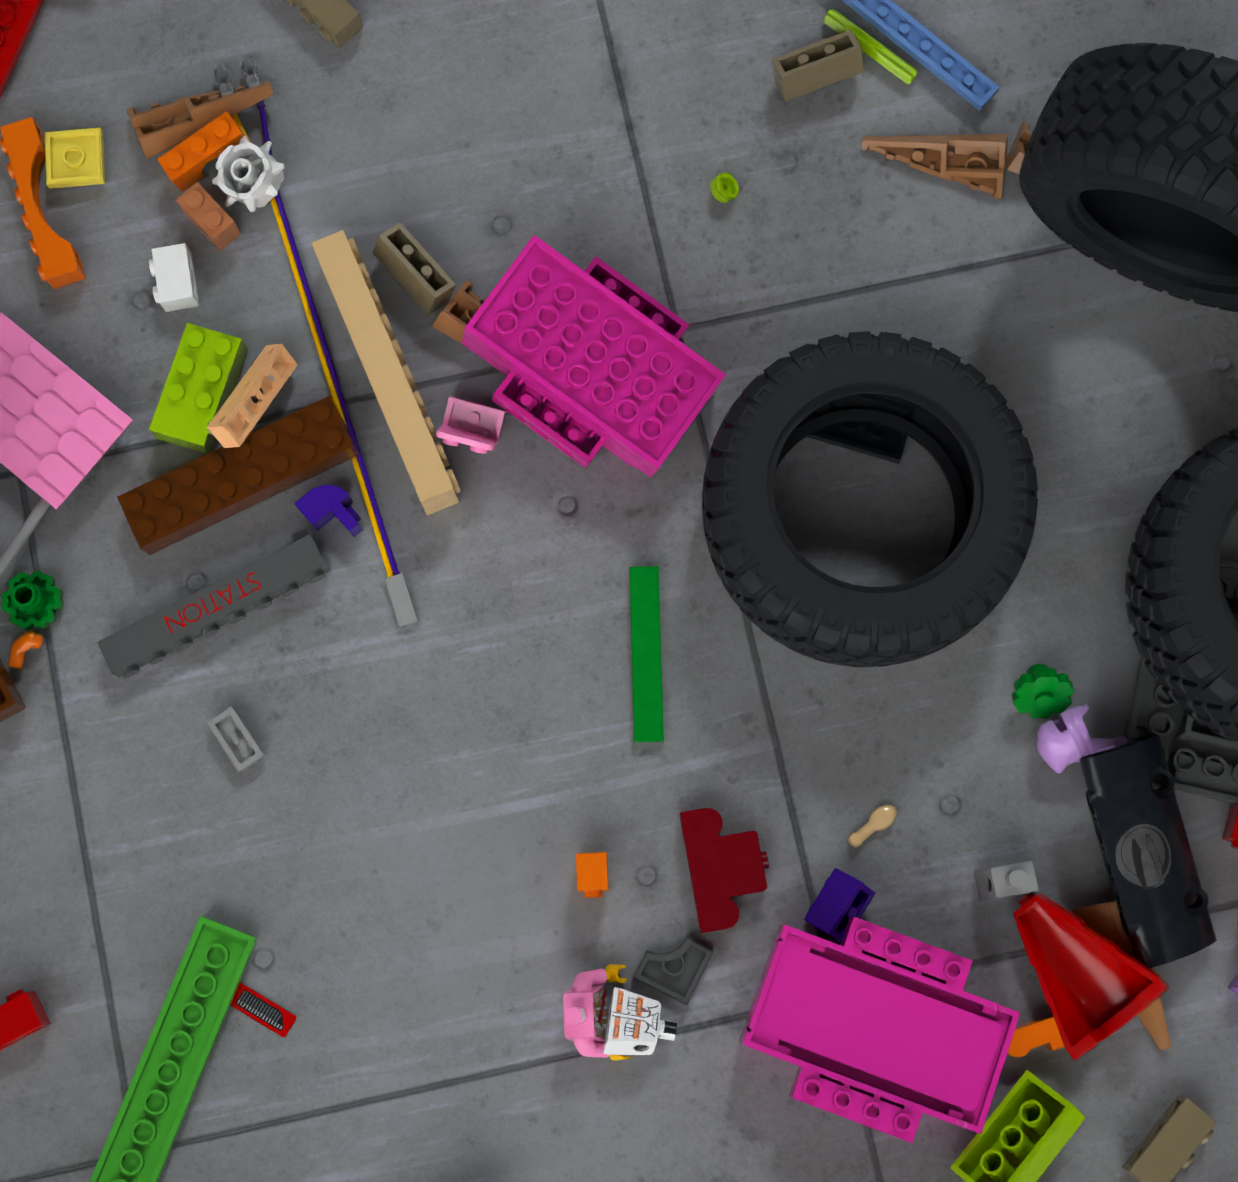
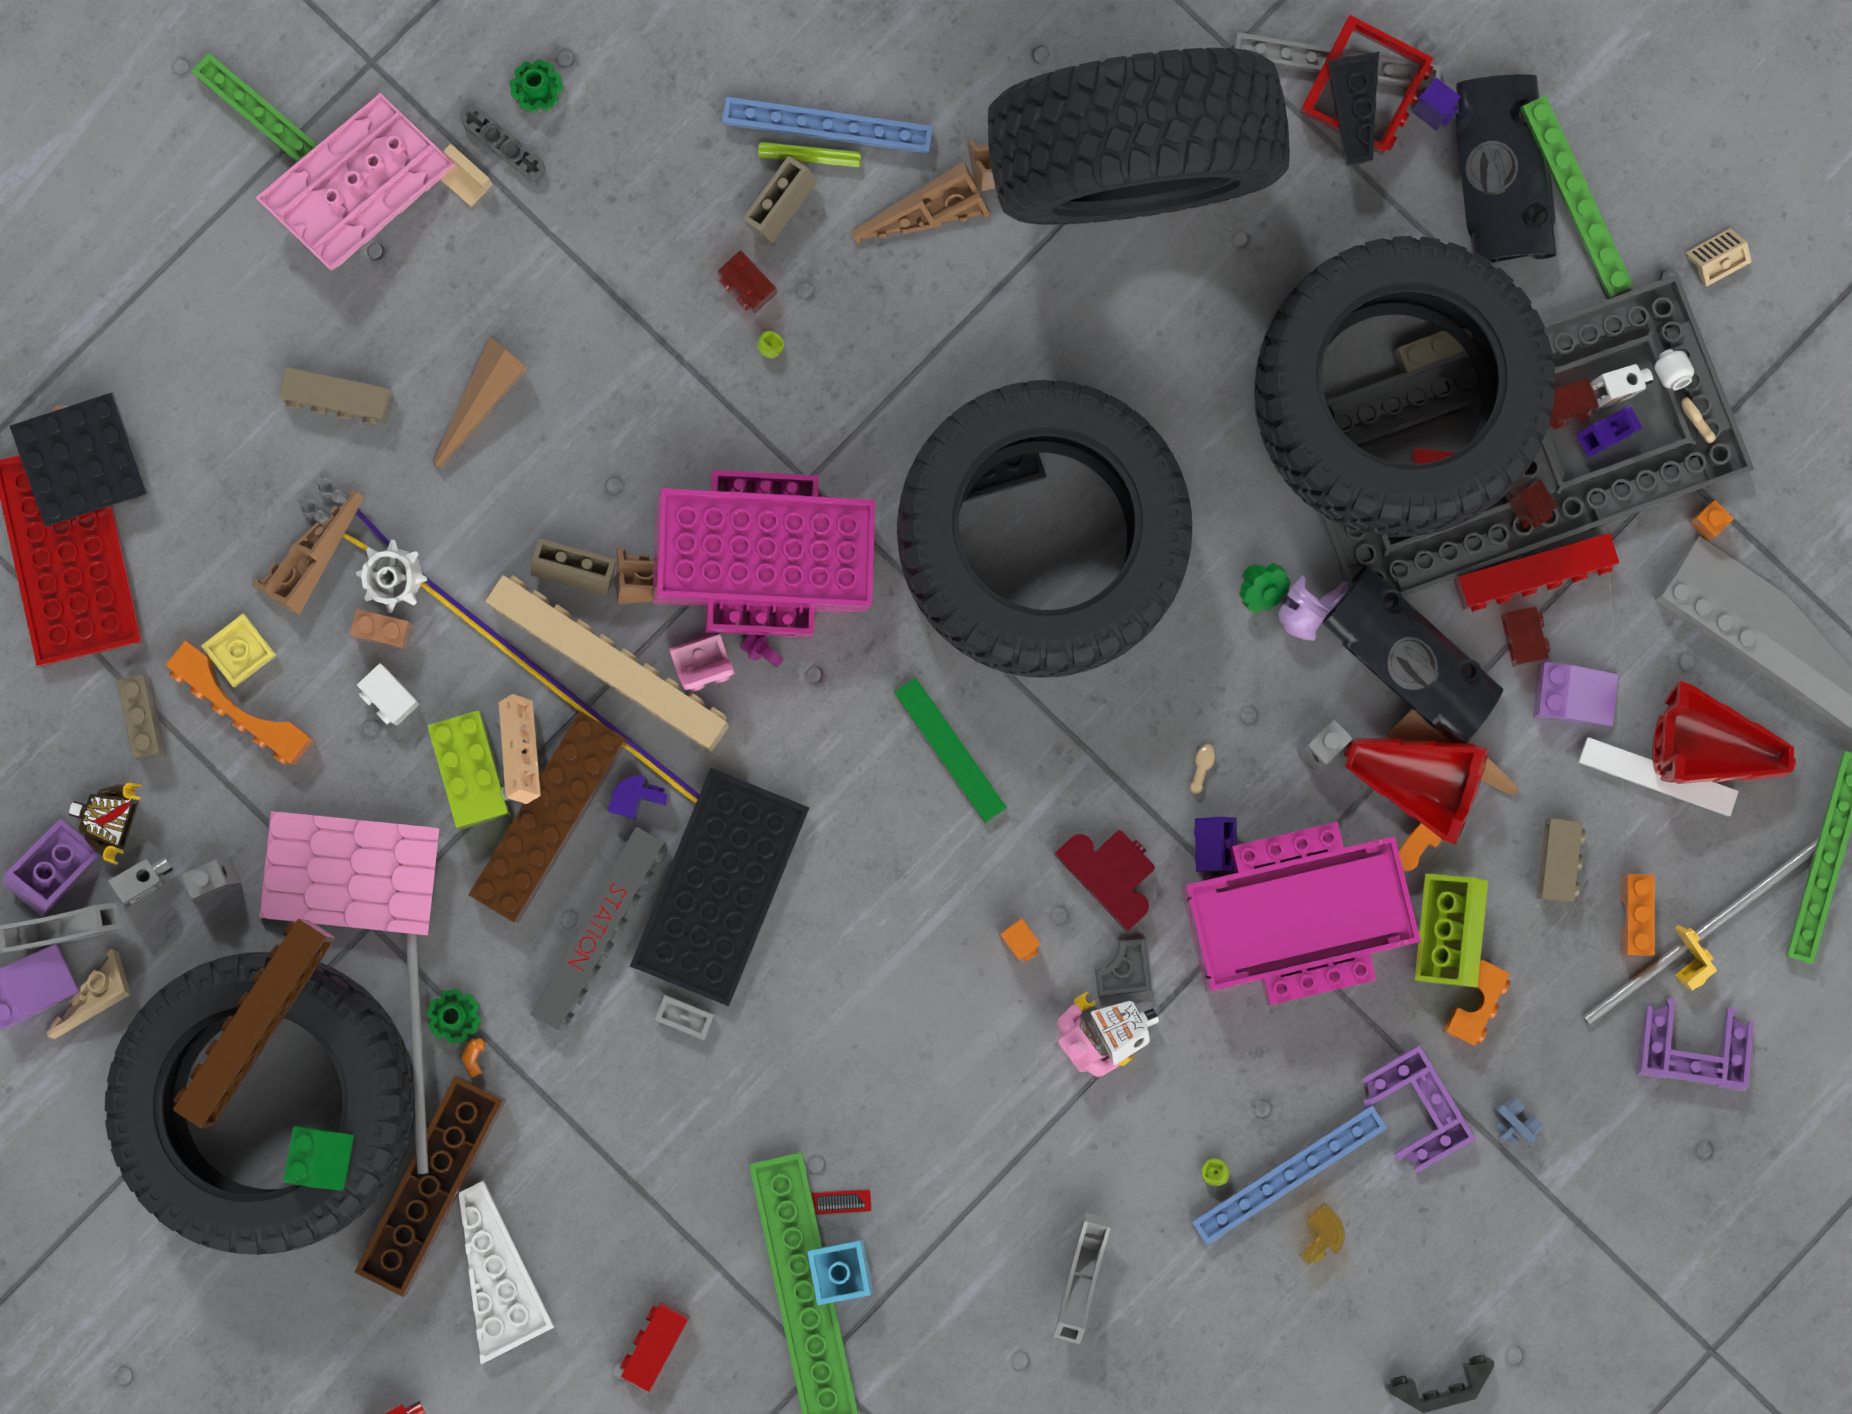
camera: 40 degrees left, 5 degrees up
(188, 158) = (337, 586): orange arch -> none
(213, 1077) = (840, 1272): none -> medium azure slope
(349, 641) = (719, 887): none -> black plate
(455, 66) = (490, 382): none -> medium nougat wedge
(531, 447) = (758, 647): none -> magenta piece
(739, 119) = (746, 282): none -> clear red brick

